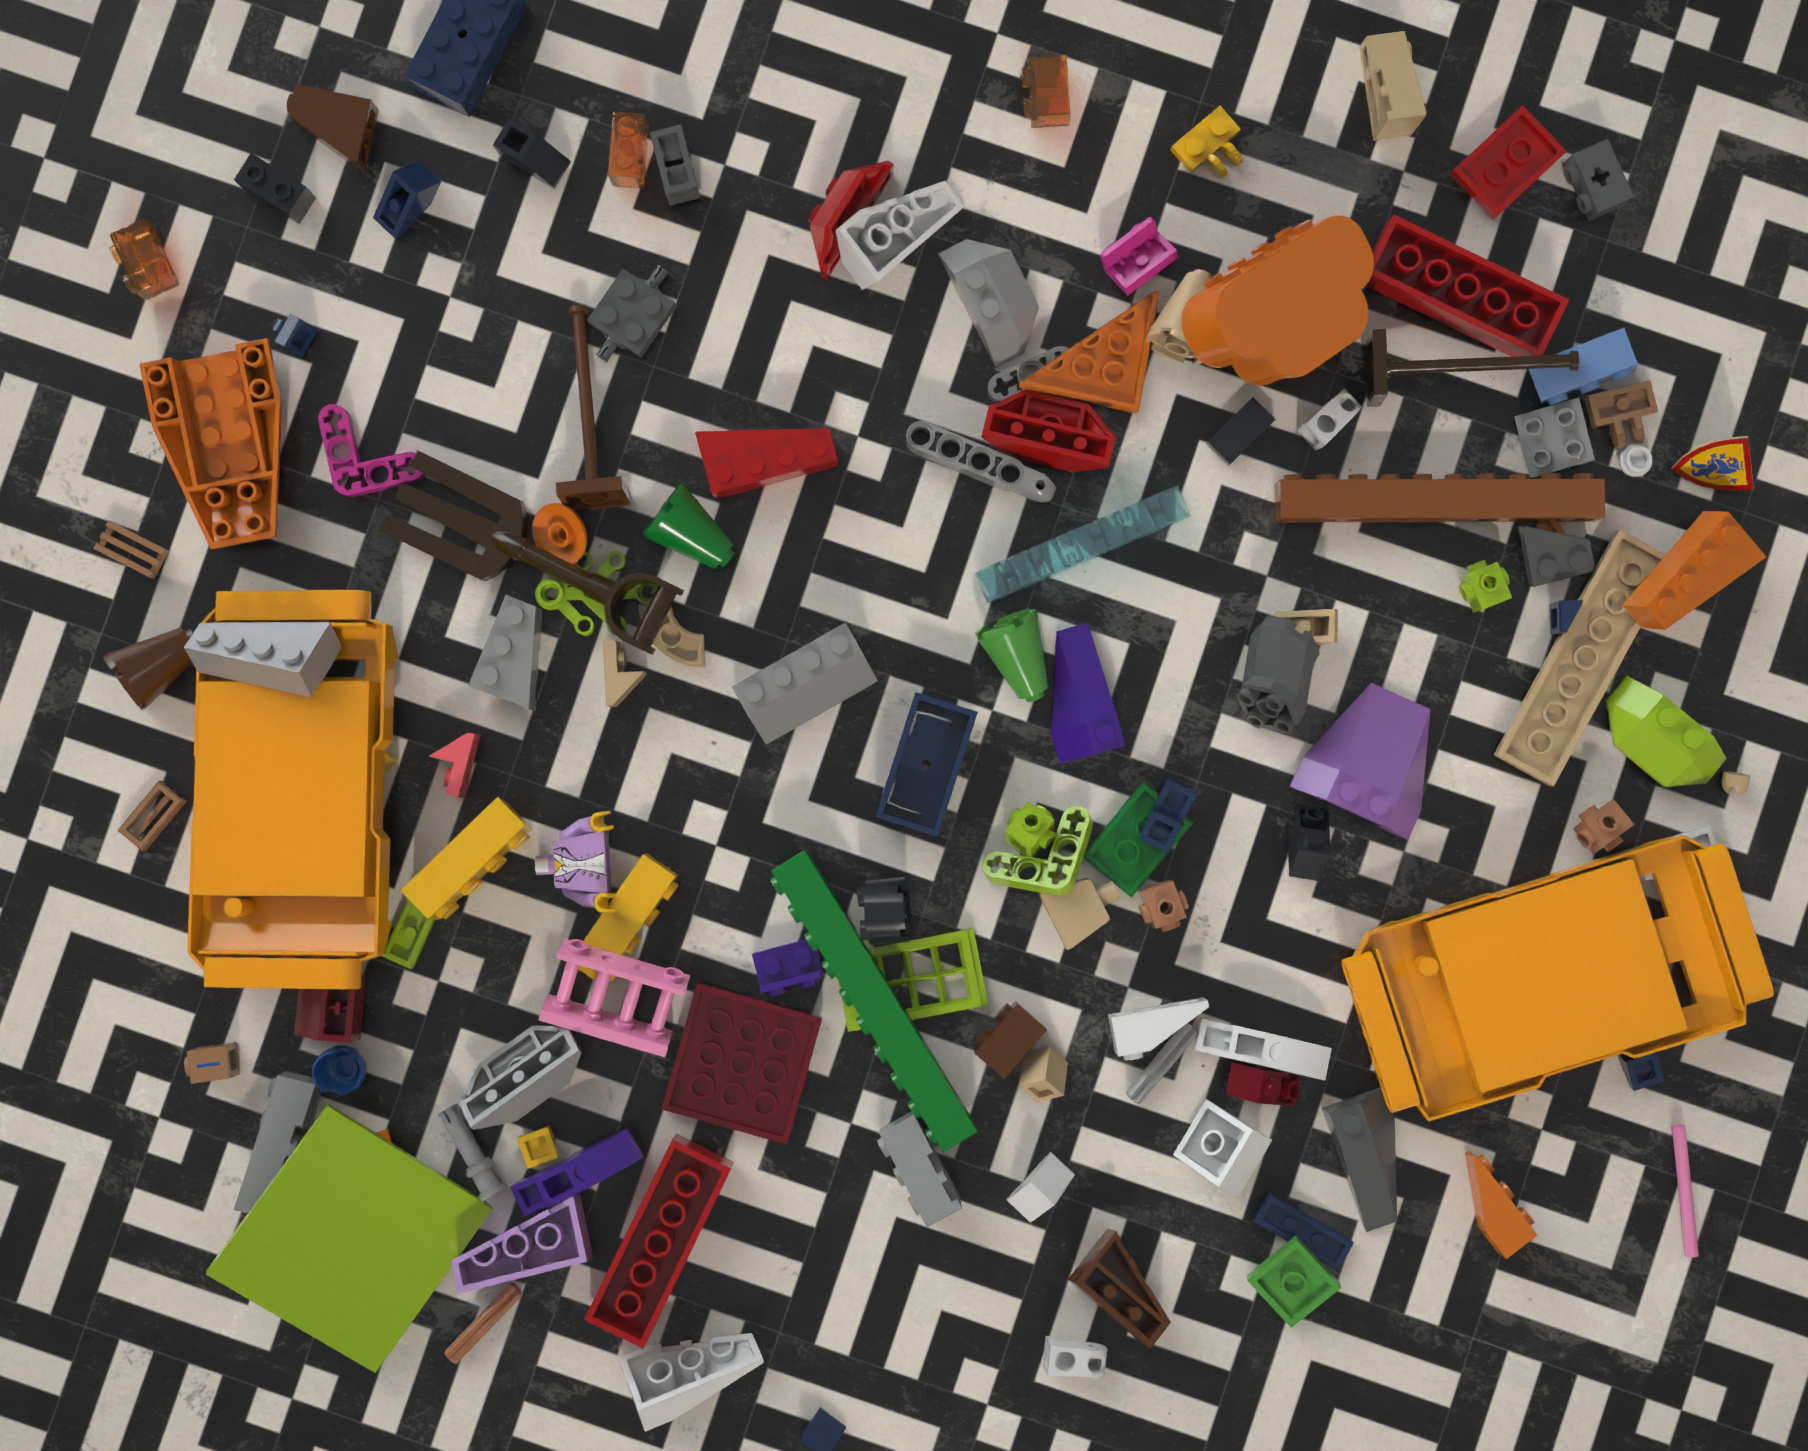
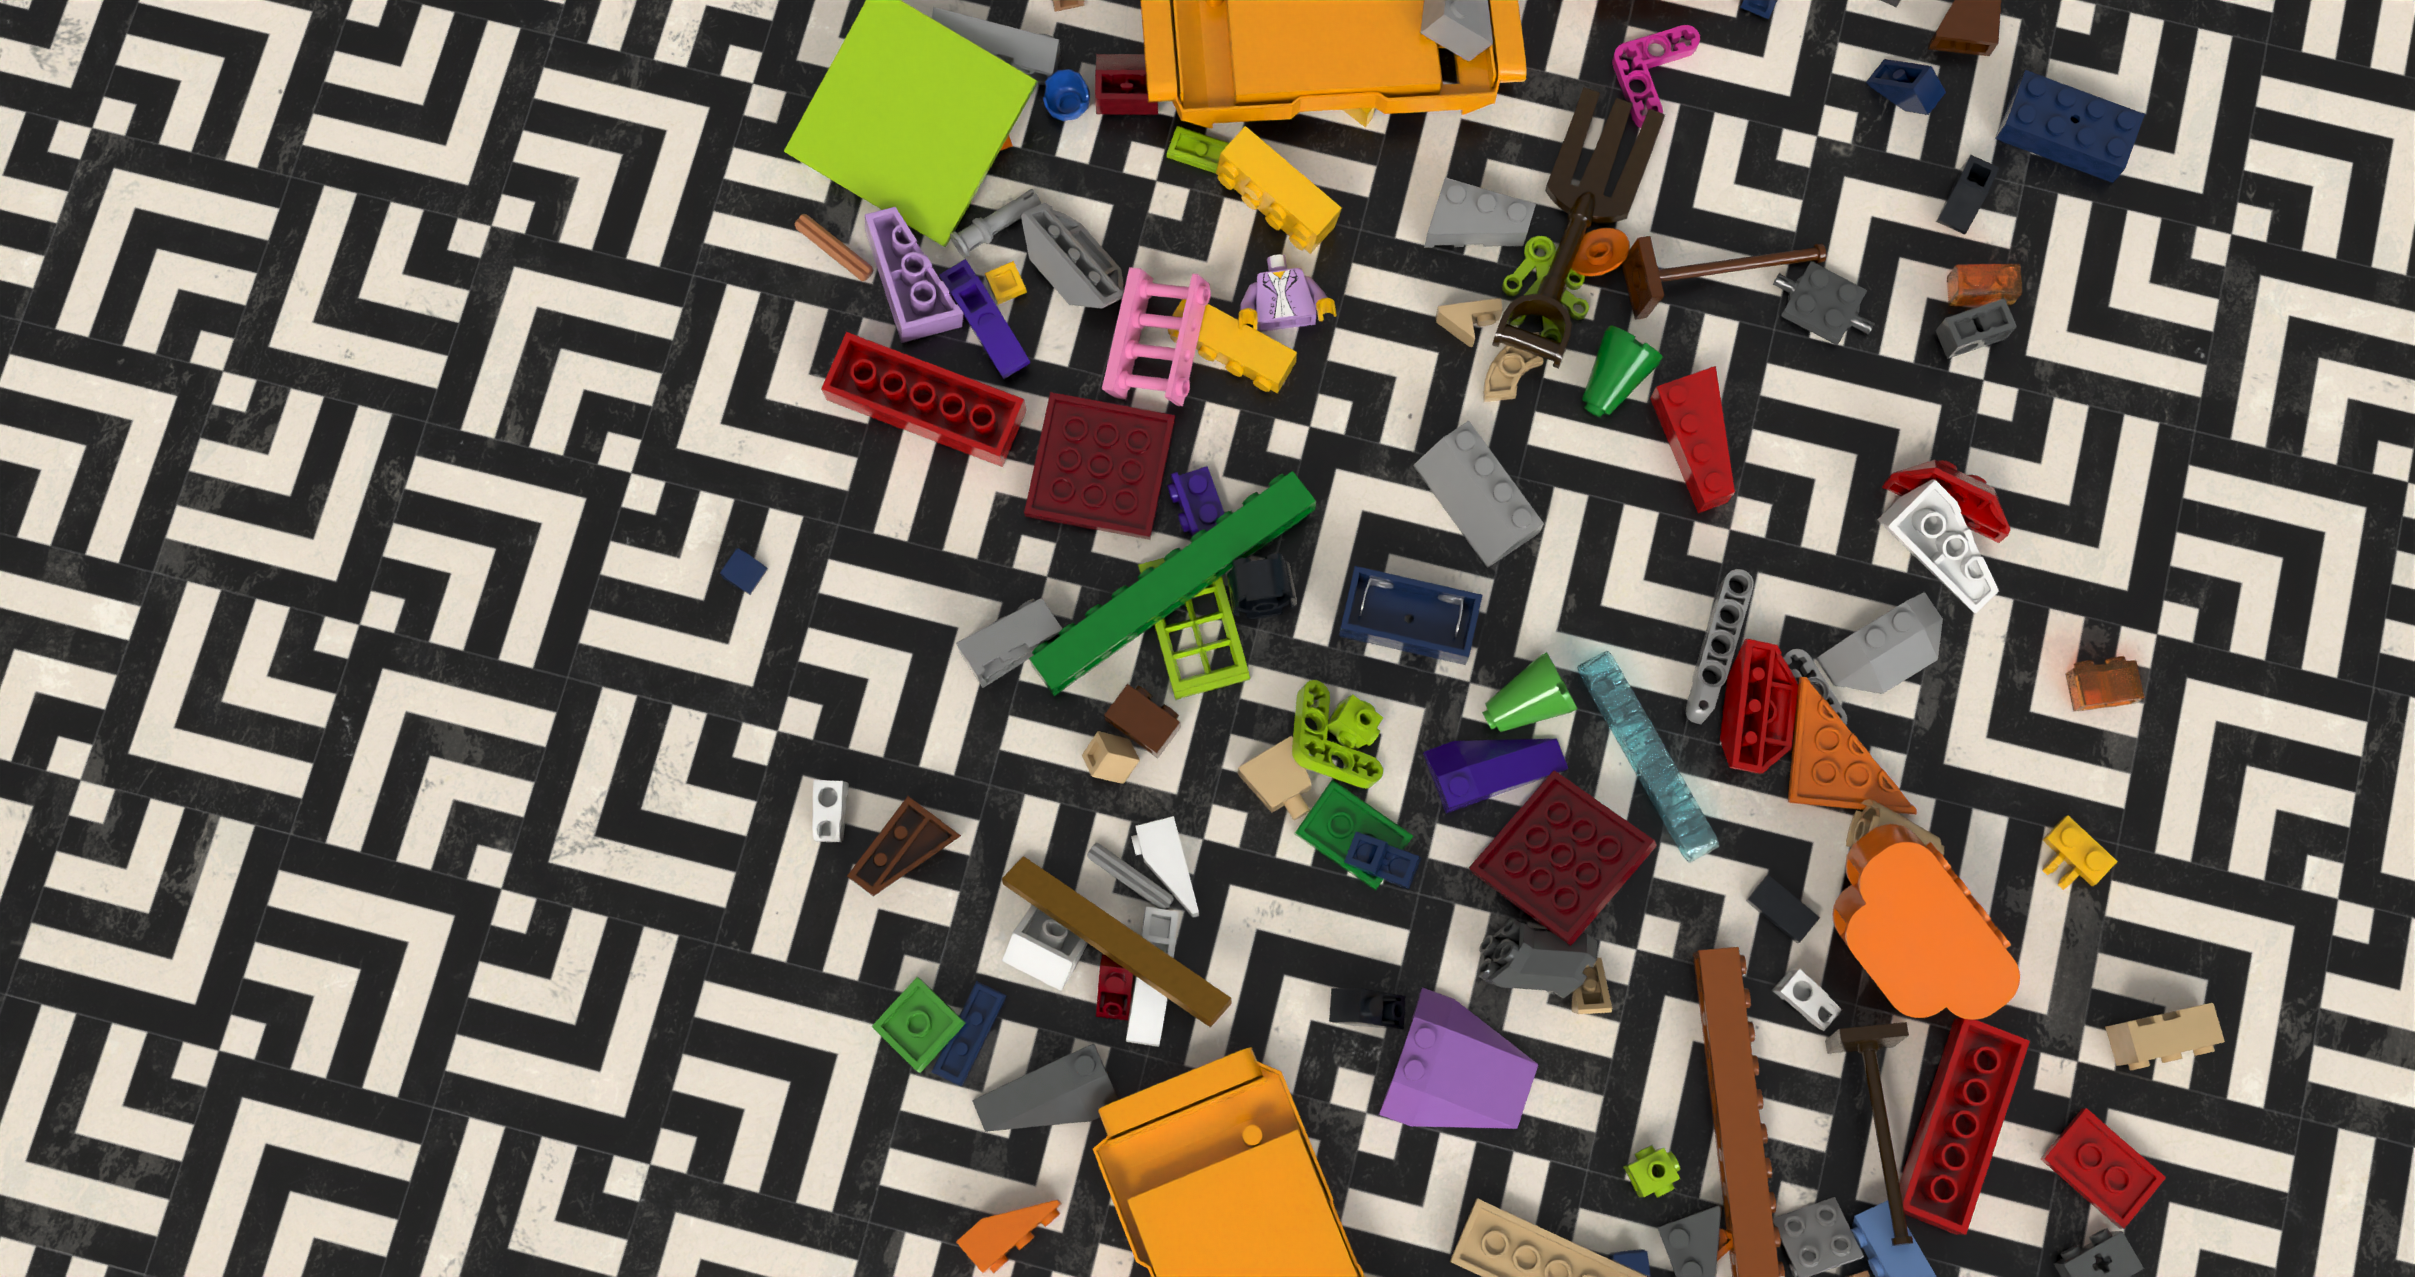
camera: 90 degrees right, 10 degrees down
(462, 754) = (1376, 182): coral slope -> none
(679, 1377) = (790, 428): white wedge -> none
(1041, 1188) = (997, 765): white slope -> none
(1137, 256) = (1949, 787): dark pink bracket -> none
(1152, 899) = (1297, 852): nougat brick -> none
(1182, 639) = (1562, 857): none -> dark red plate
(1234, 1084) = (1117, 941): none -> pearl gold tile

